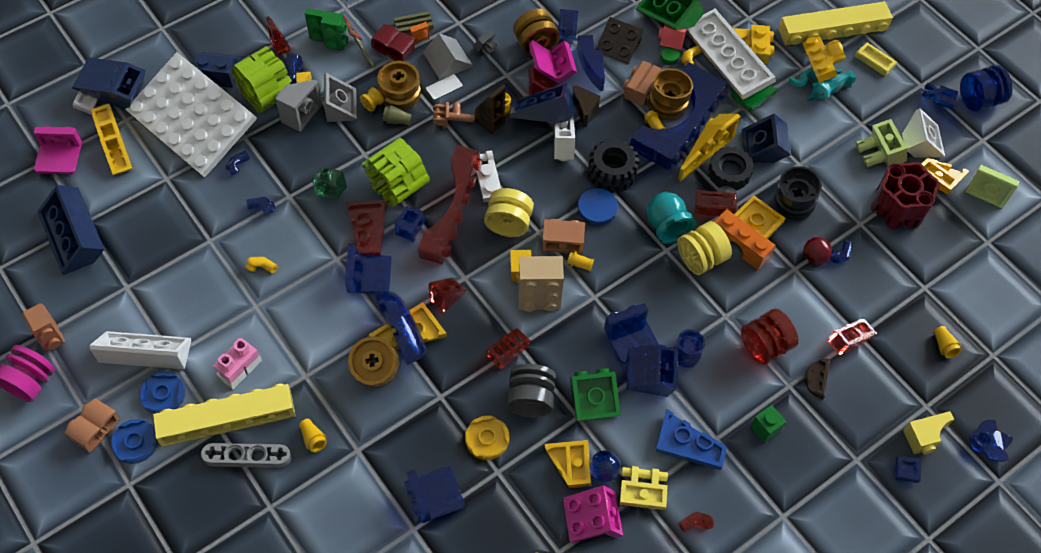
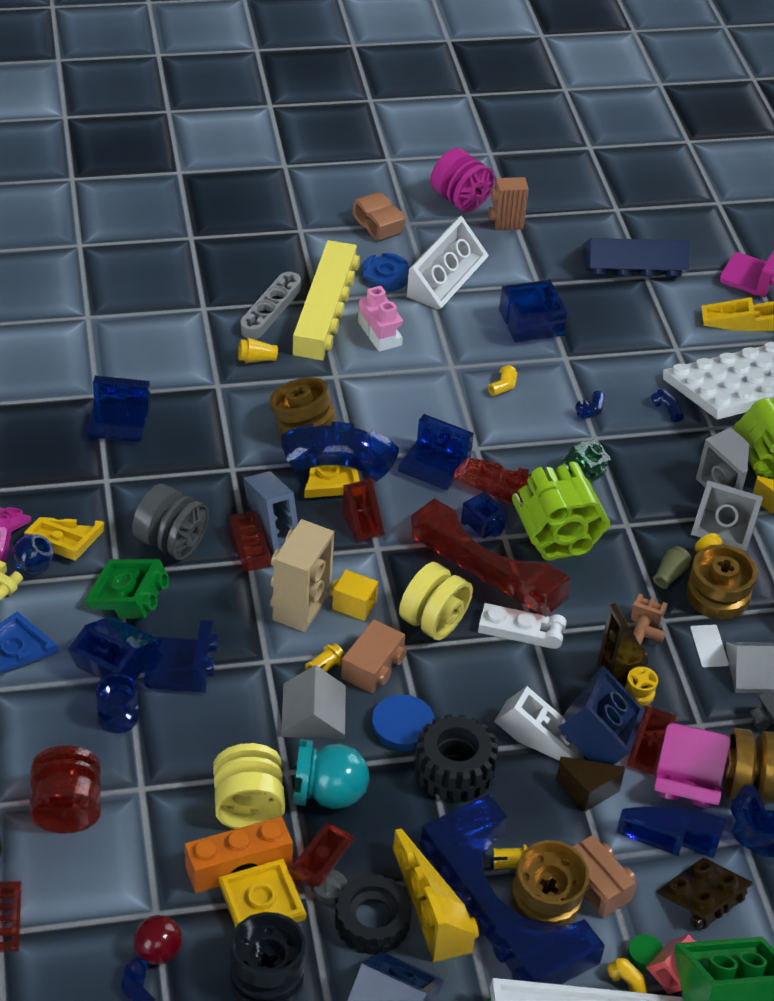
camera: 115 degrees right, 15 degrees down
(134, 441) = (346, 234): blue tile -> none
(183, 269) = (533, 311): none -> clear blue piece
(473, 344) = (274, 506): none -> sand blue slope
(487, 437) = (143, 478): yellow tile -> none
(618, 254) = (313, 706): none -> light grey slope

